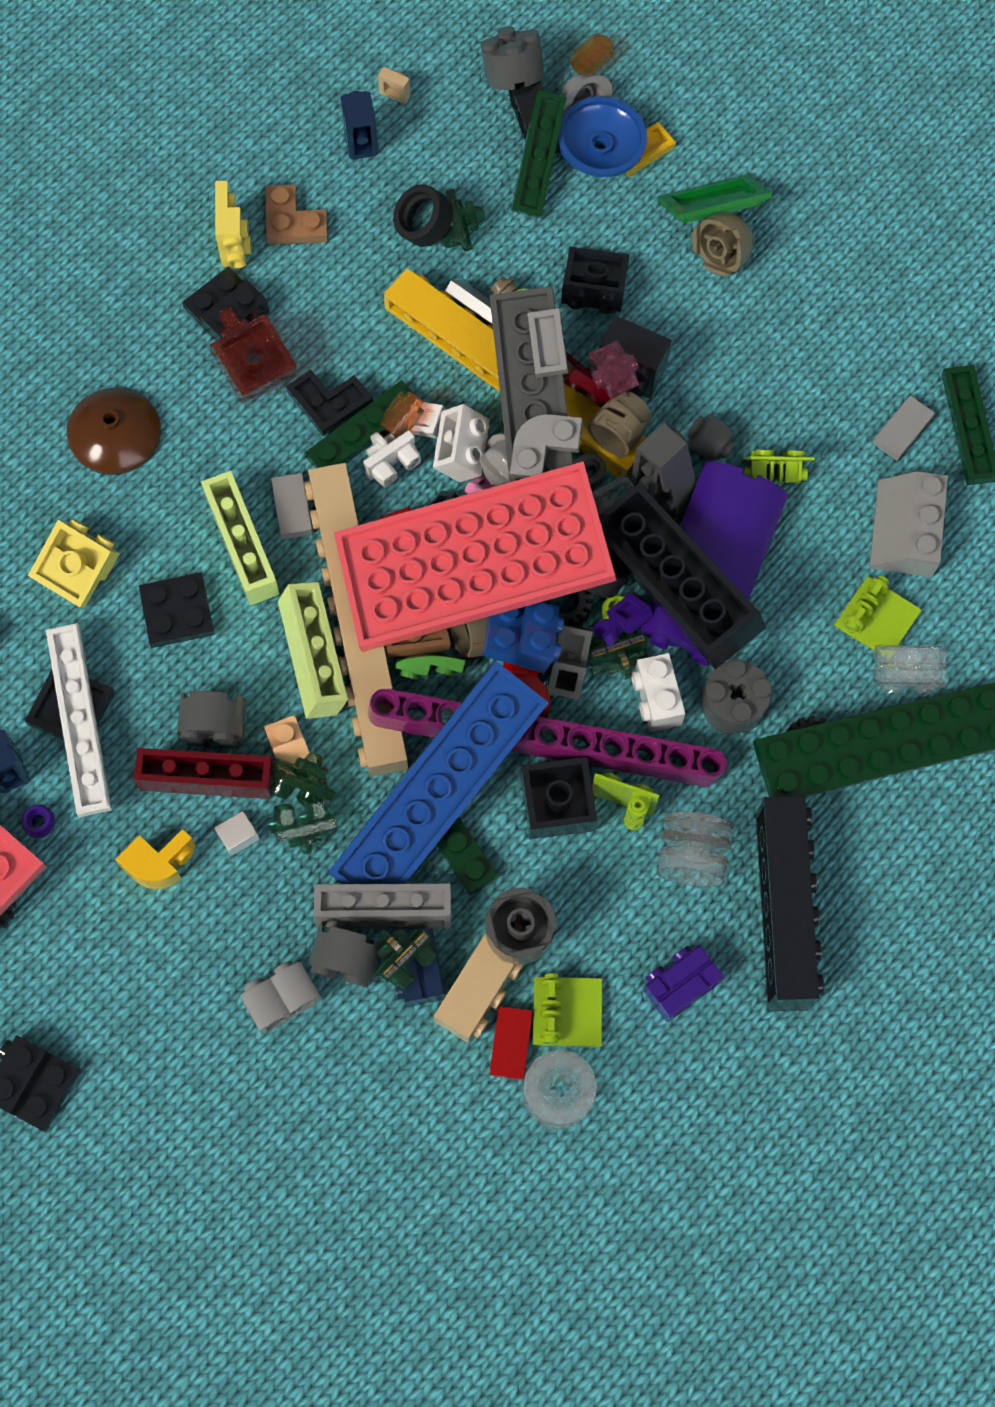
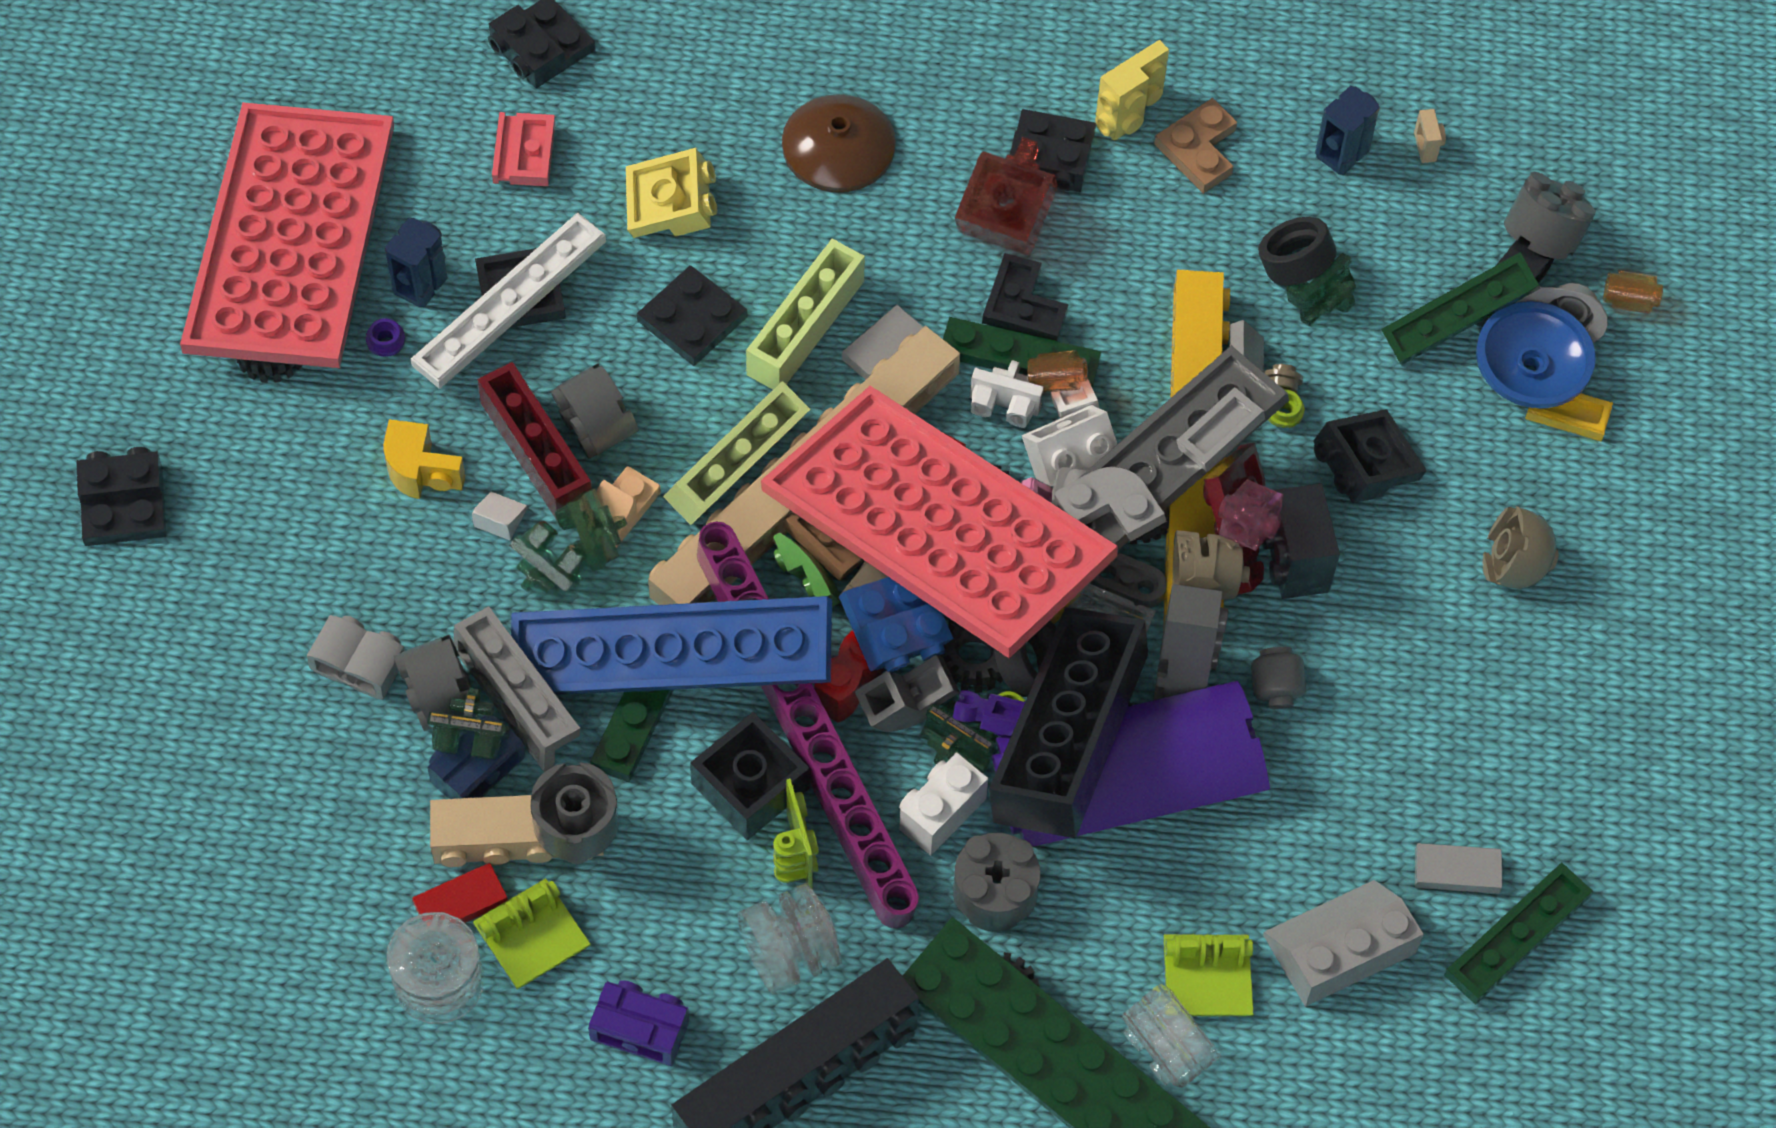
camera: 55 degrees right, 10 degrees down
(715, 198) = (1561, 507): green piece -> none
(791, 459) = (1288, 752): lime hinge -> none

